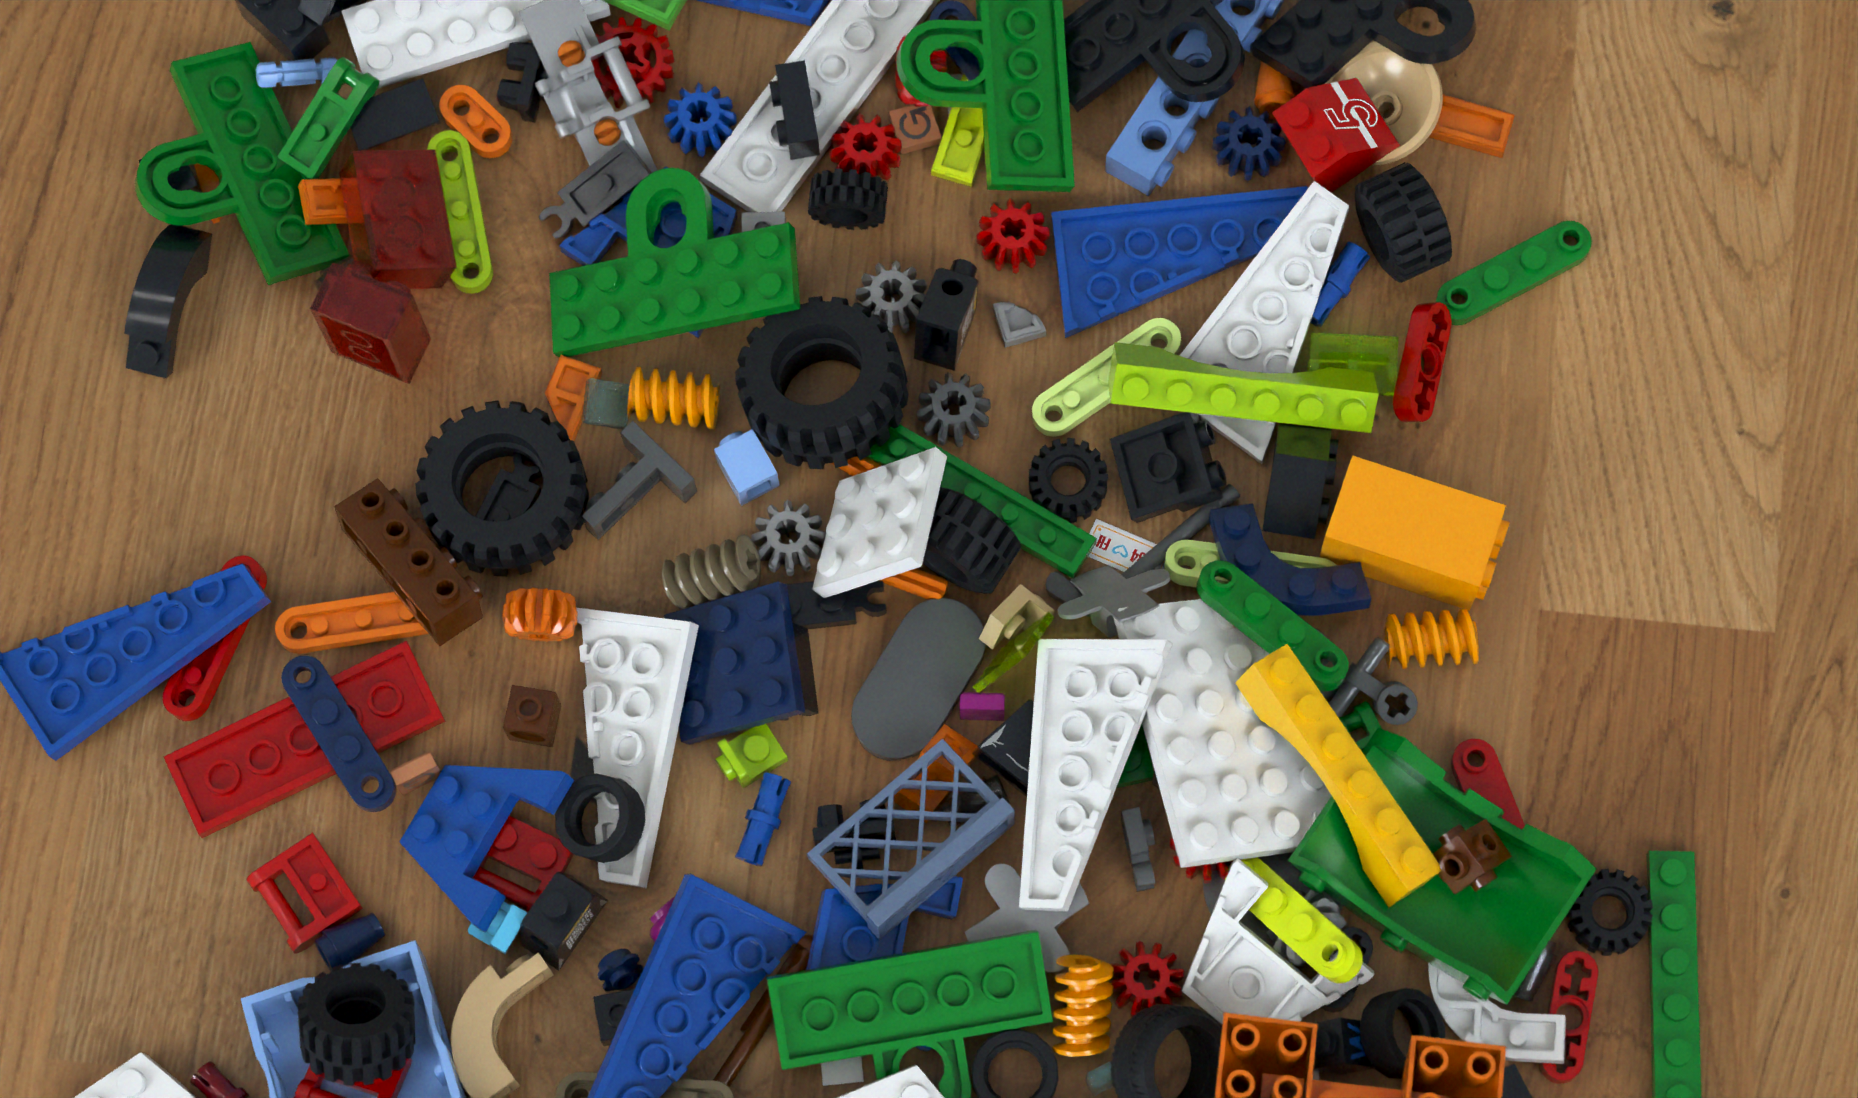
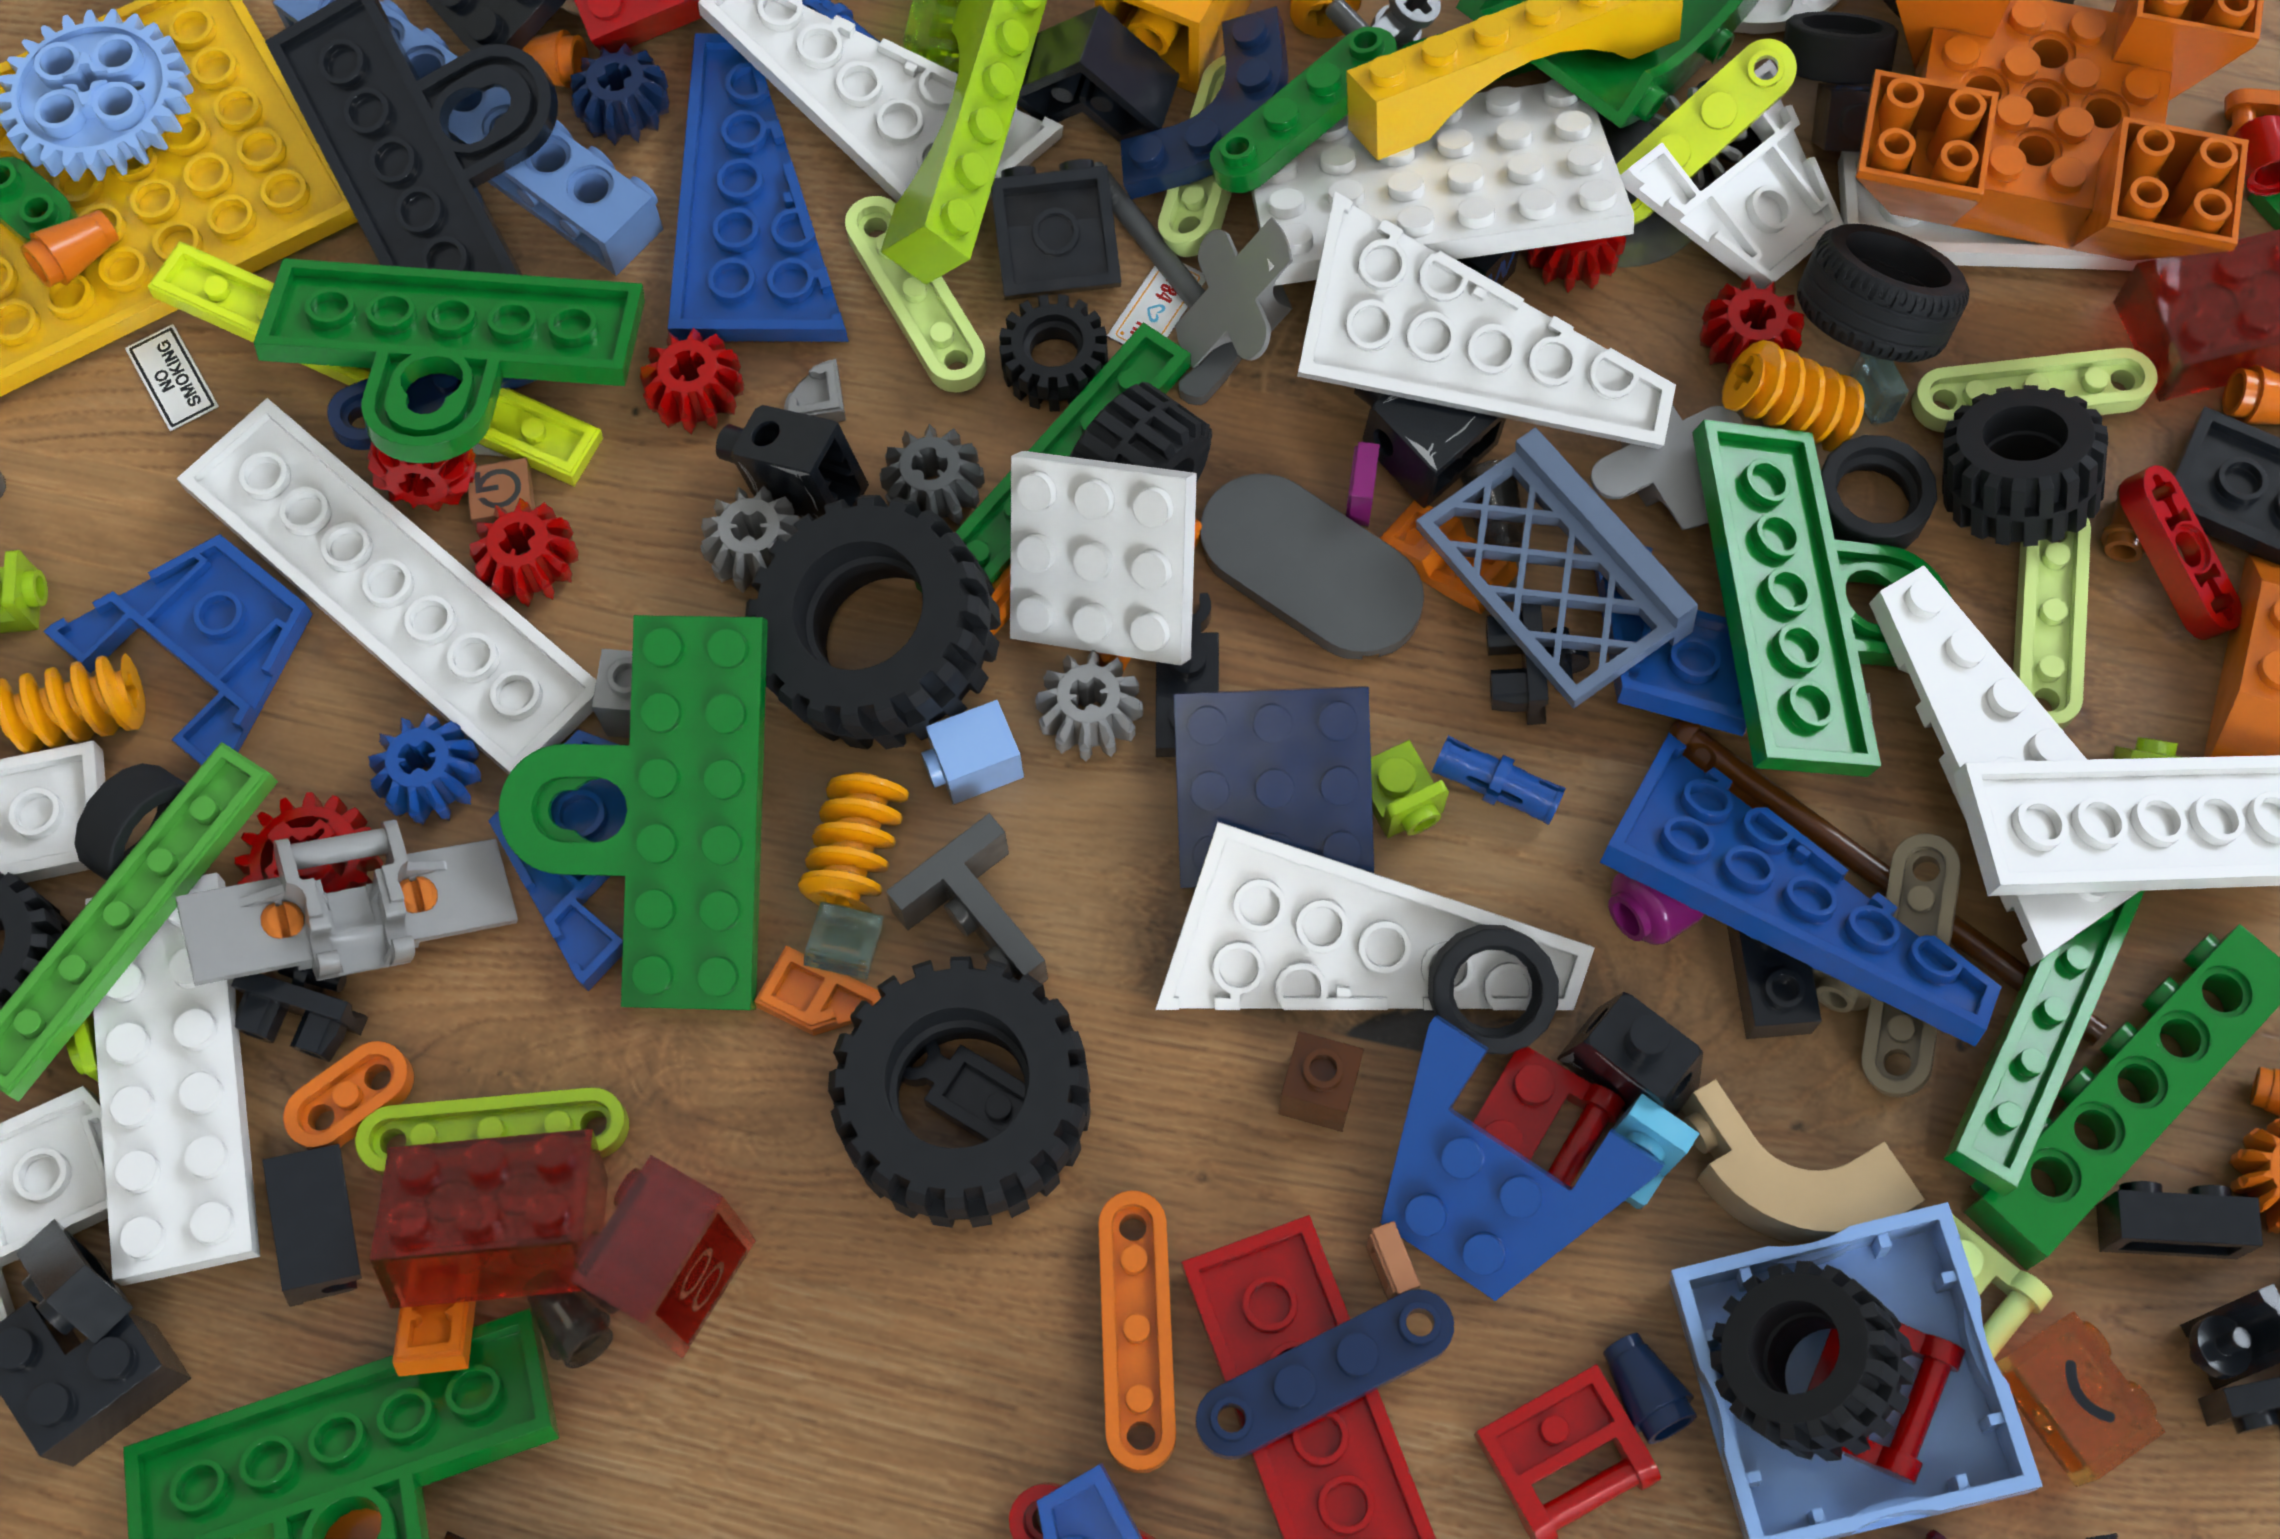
camera: 85 degrees left, 5 degrees down
(293, 72) = (198, 1371): light blue axle -> none
(327, 119) = (299, 1312): green plate -> none
(410, 561) = (1059, 1239): reddish brown brick -> none
(539, 614) = (1168, 1053): orange gear -> none
(598, 187) = (503, 916): black plate -> none
(619, 969) = (1711, 991): dark blue plate -> none
(712, 572) = (1137, 800): dark tan piece -> none
(793, 94) = (446, 620): black piece -> none
(847, 199) = (597, 571): black tyre -> none
(1013, 652) = (1303, 419): clear neon green piece -> none
(1015, 612) = (1243, 429): tan bracket -> none
(1138, 836) = (1599, 319): dark grey plate -> none

